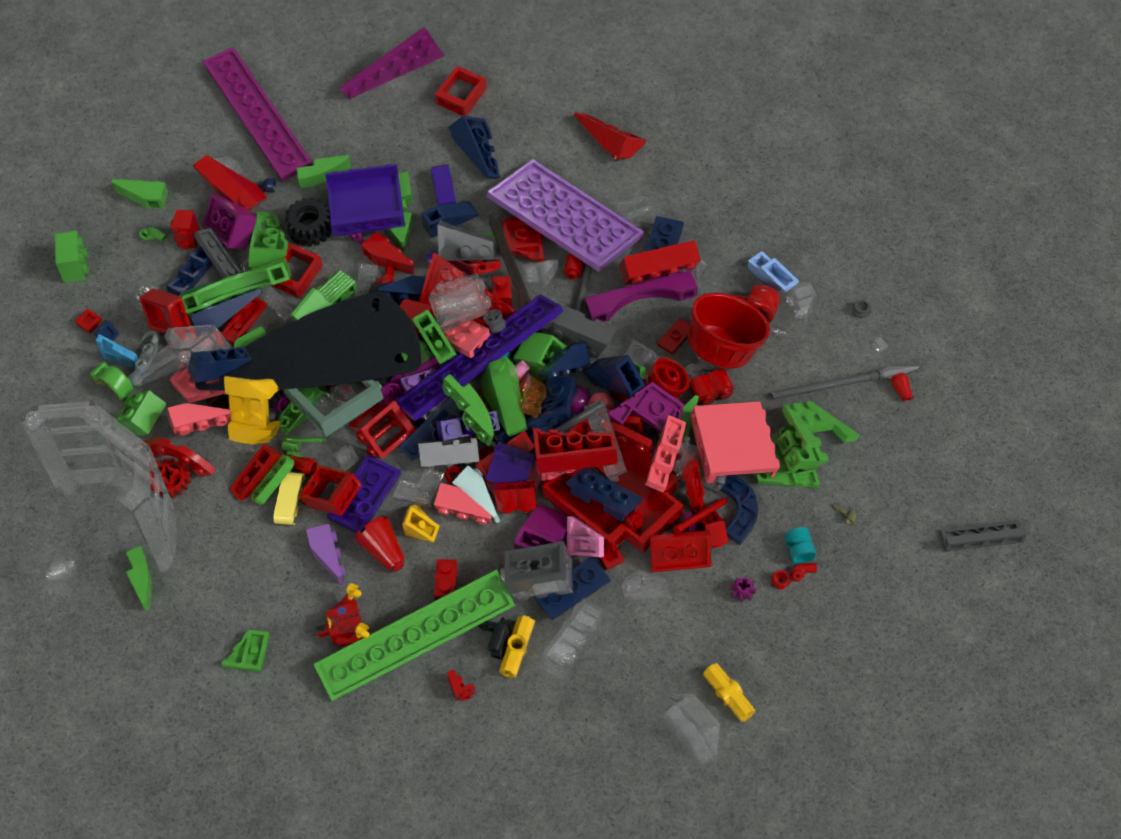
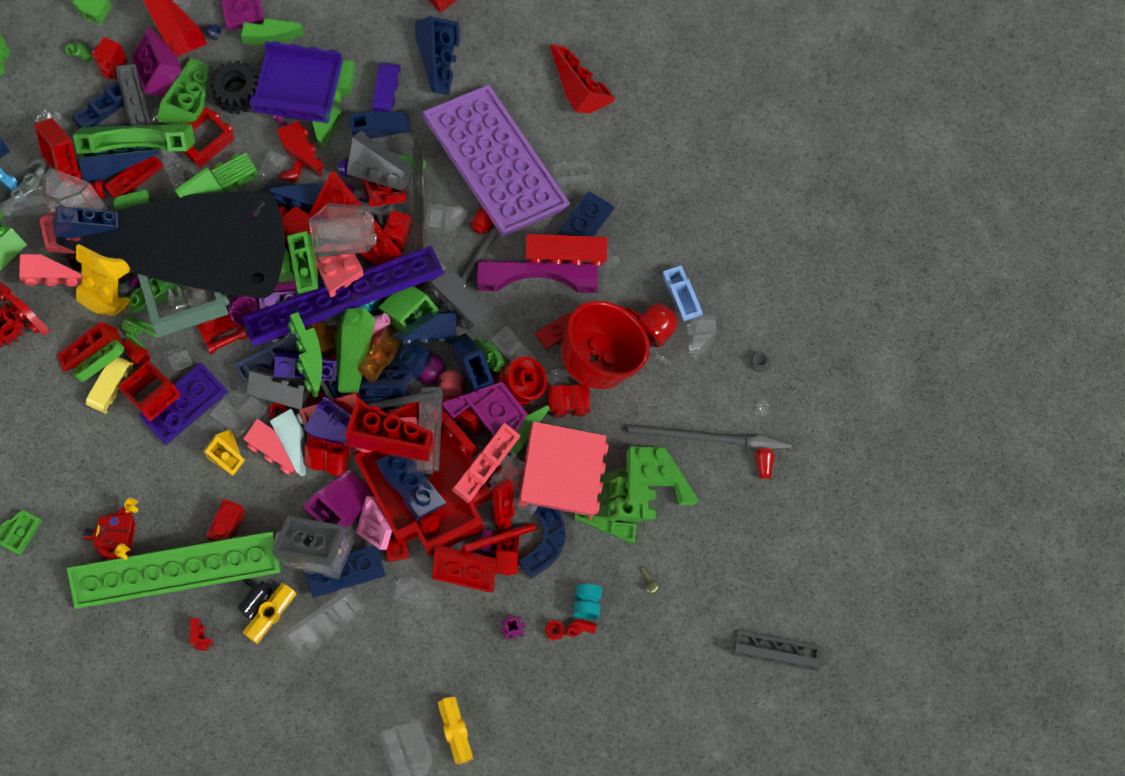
camera: 20 degrees right, 10 degrees up
(323, 549) = (122, 443): medium lavender slope -> none
(382, 543) = (179, 463): red cone -> none
(392, 408) = (218, 327): red window -> none
(494, 321) = (372, 262): dark grey wheel -> none
(523, 239) = (442, 175): red wing -> none

